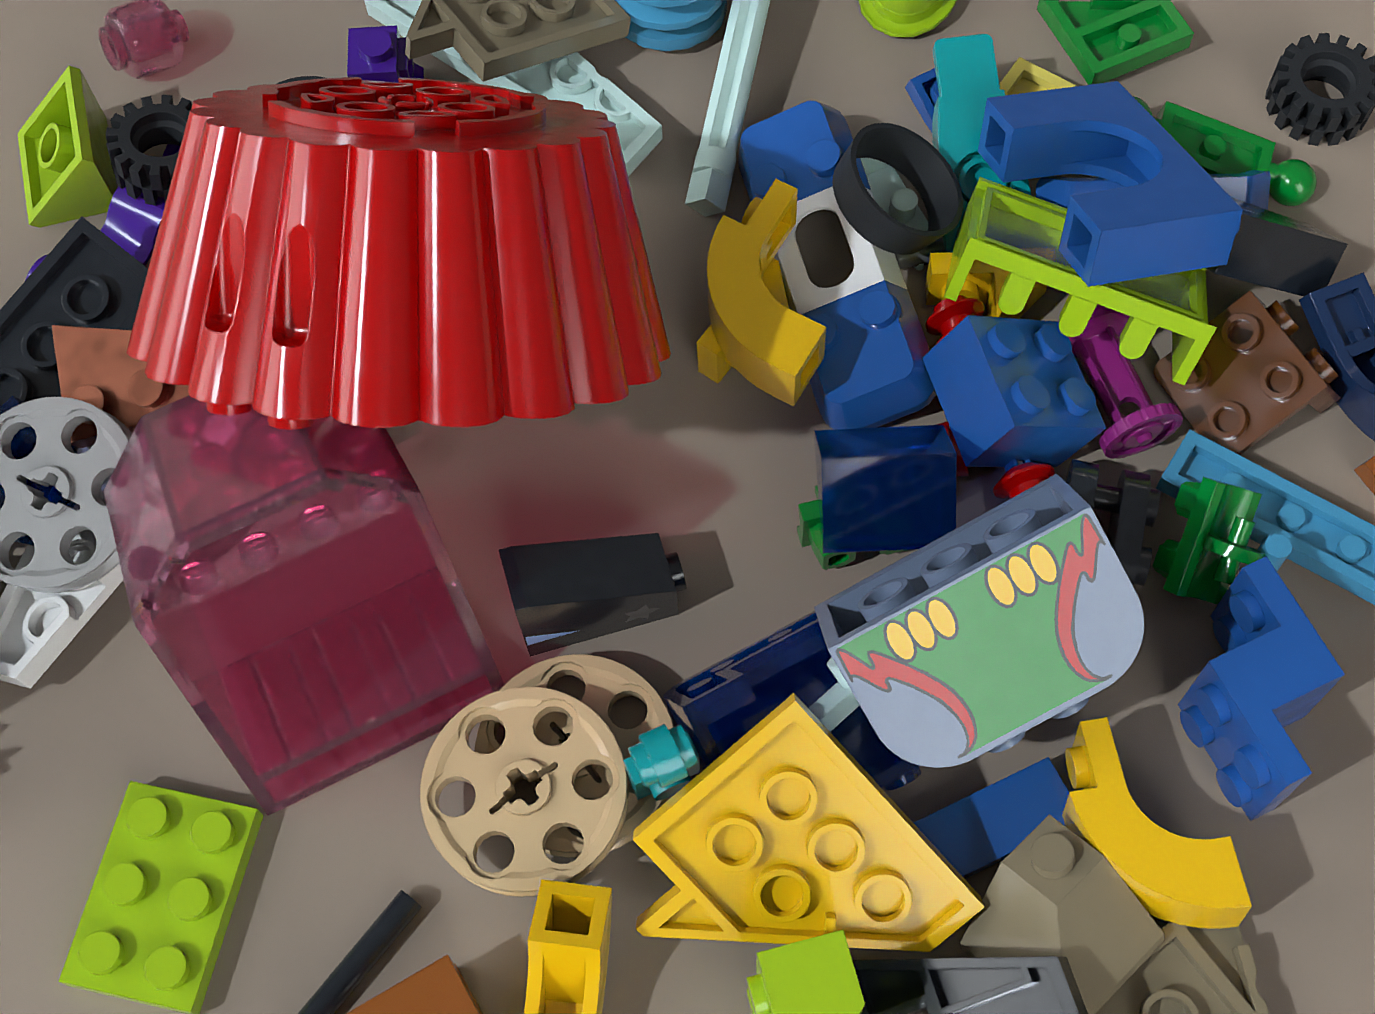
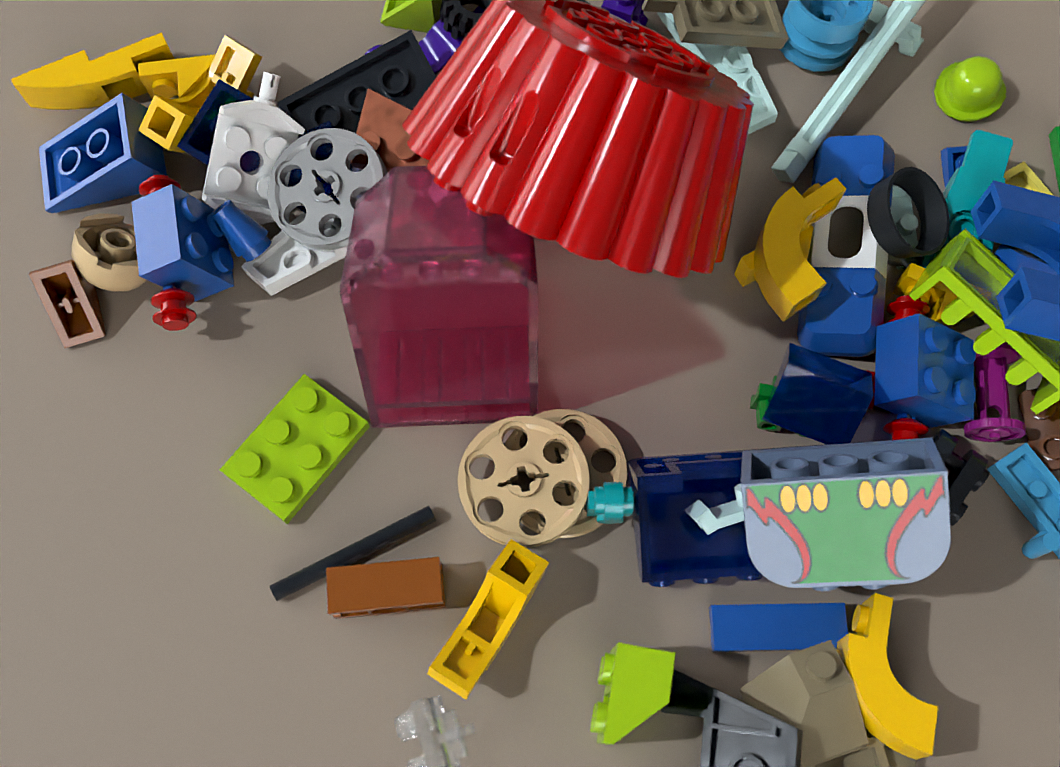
camera: 20 degrees right, 5 degrees up
(590, 587) = (613, 378): black slope -> none
(797, 845) = (670, 590): yellow wing -> none
(1212, 540) = (1009, 519): green hips -> none
(1263, 682) = (1009, 618): blue bracket -> none

